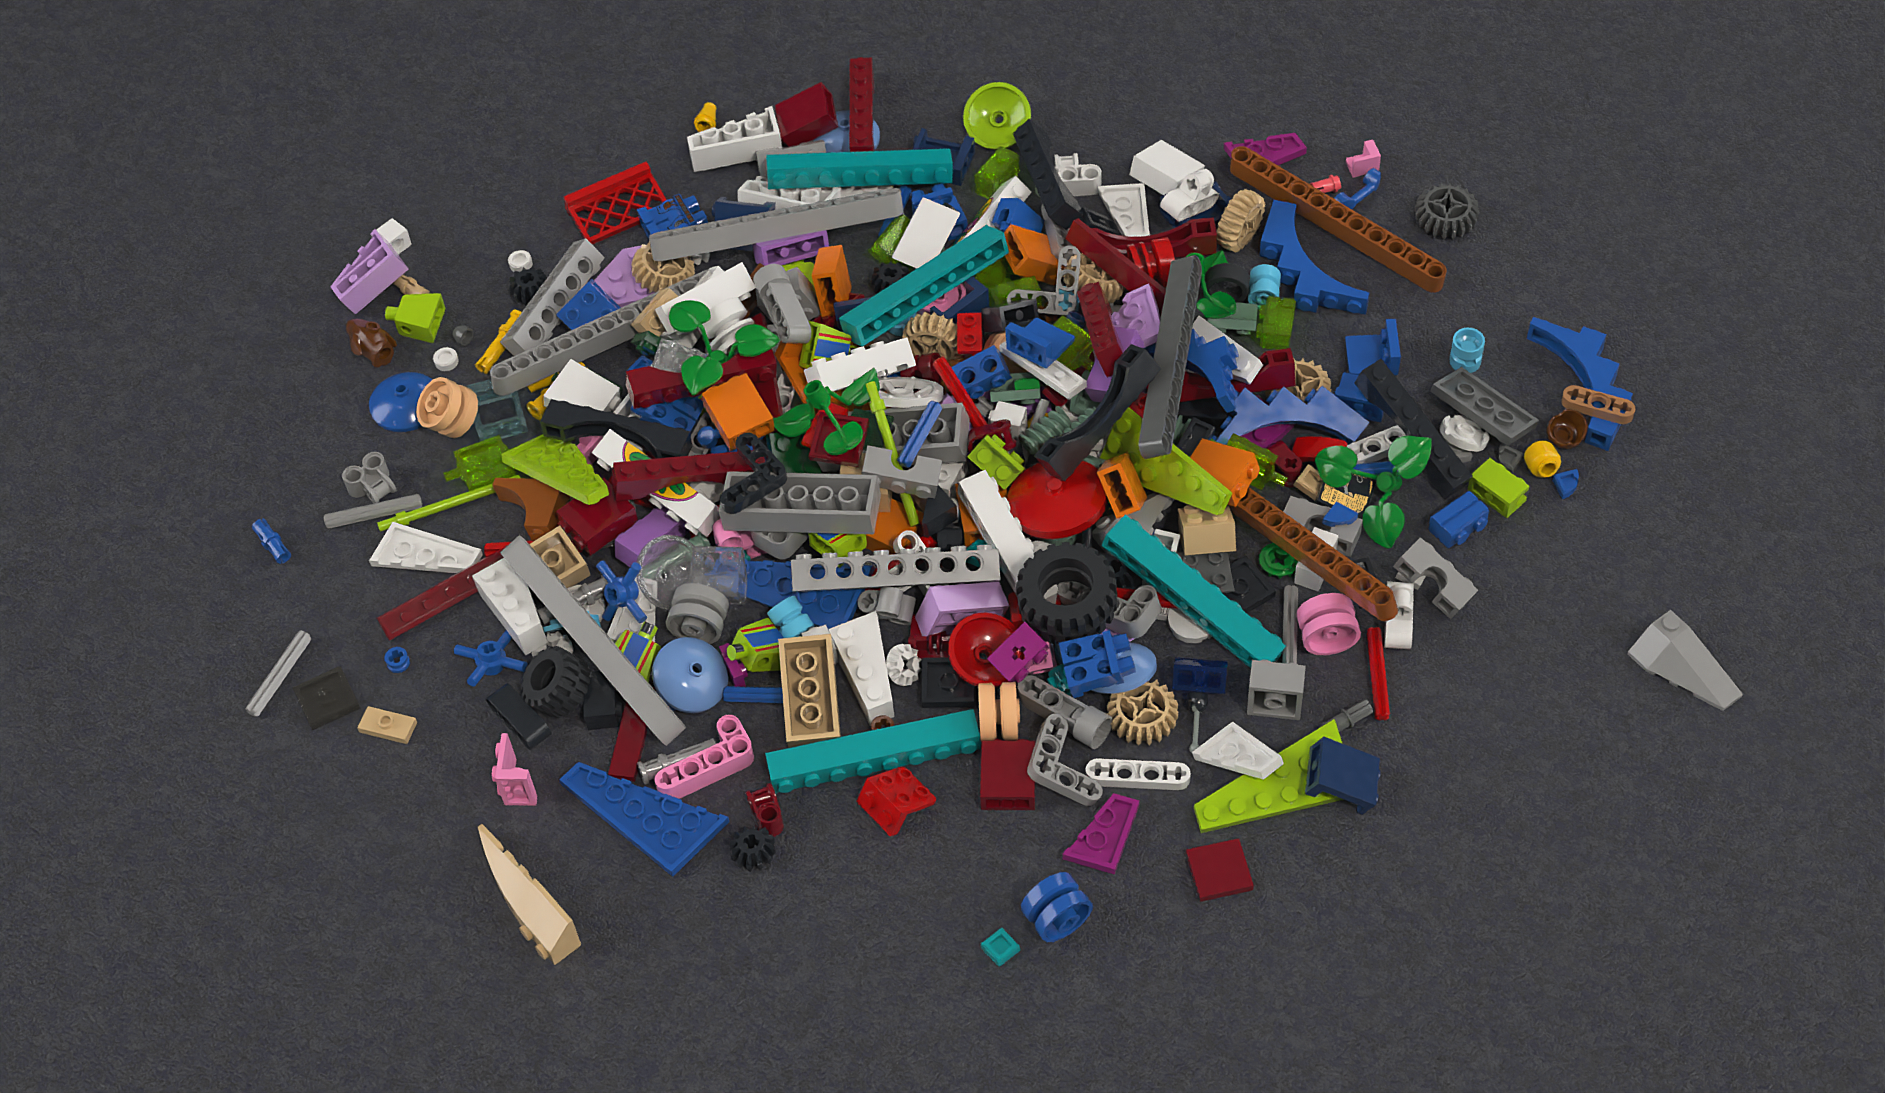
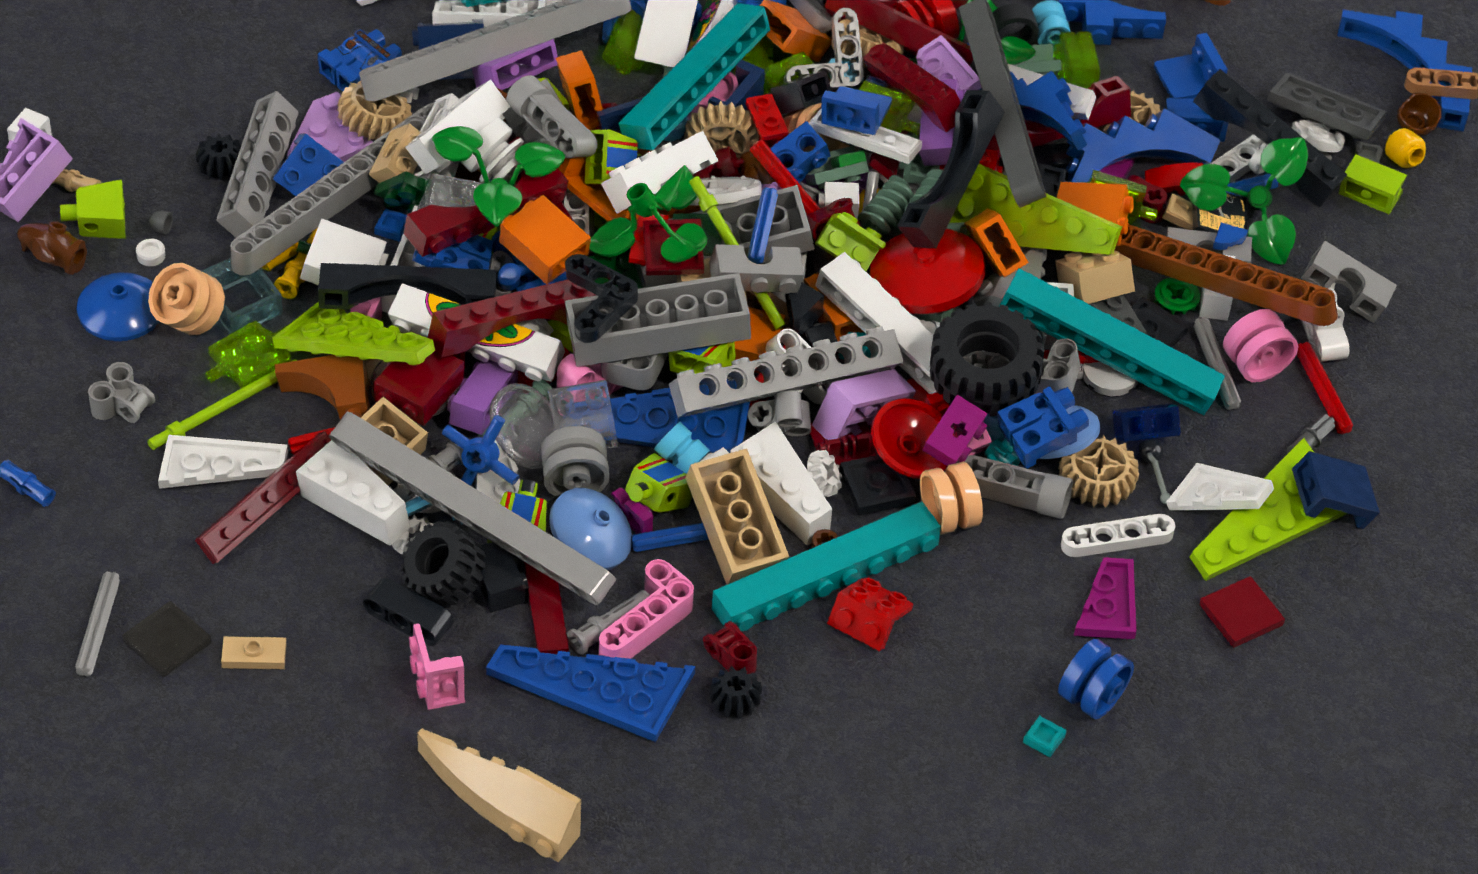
camera: 25 degrees left, 5 degrees down
(372, 511) = (135, 429): light grey axle -> none
(395, 652) = (233, 589): blue bush -> none
(490, 658) = (349, 557): blue bar -> none
(496, 348) = (210, 225): yellow pin -> none
(520, 259) = (193, 132): white tile -> none
(609, 190) = (268, 41): red fence -> none
(887, 275) = (636, 81): black gear -> none
(1005, 775) = (983, 562): dark red brick -> none
(1053, 769) = (1066, 560): light grey beam -> none
(1276, 689) = (1233, 420): light grey brick -> none
(1459, 520) = (1346, 221): blue brick -> none
(1467, 349) = (1287, 53): medium azure wheel -> none
(1566, 482) = (1435, 168): blue tile -> none

